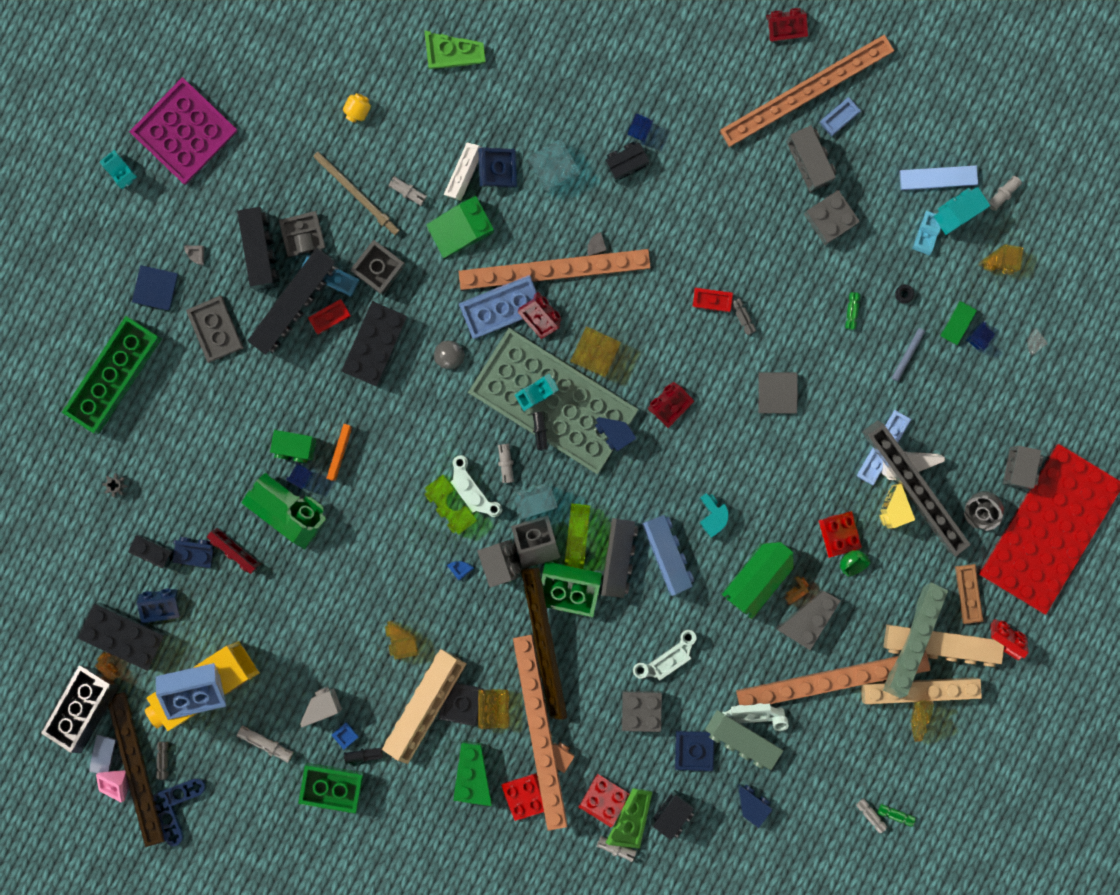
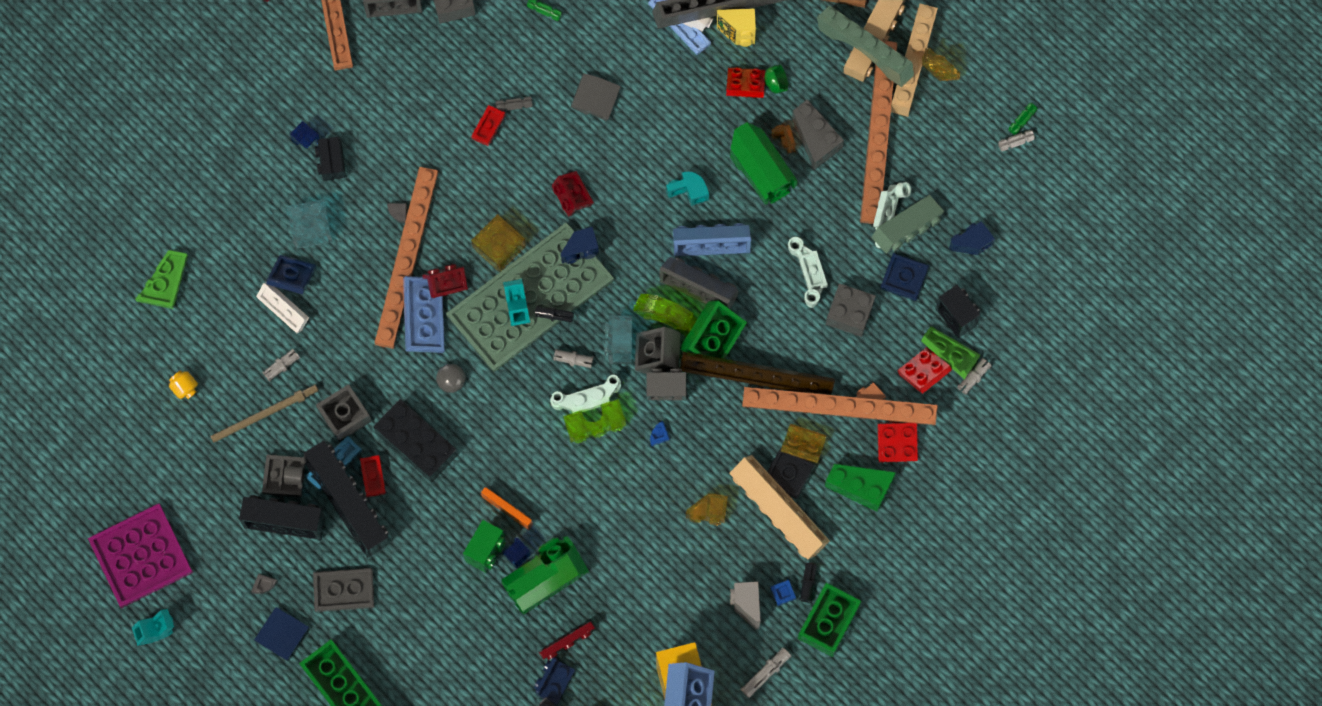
camera: 70 degrees left, 15 degrees down
(460, 227) = (334, 327): green slope -> none

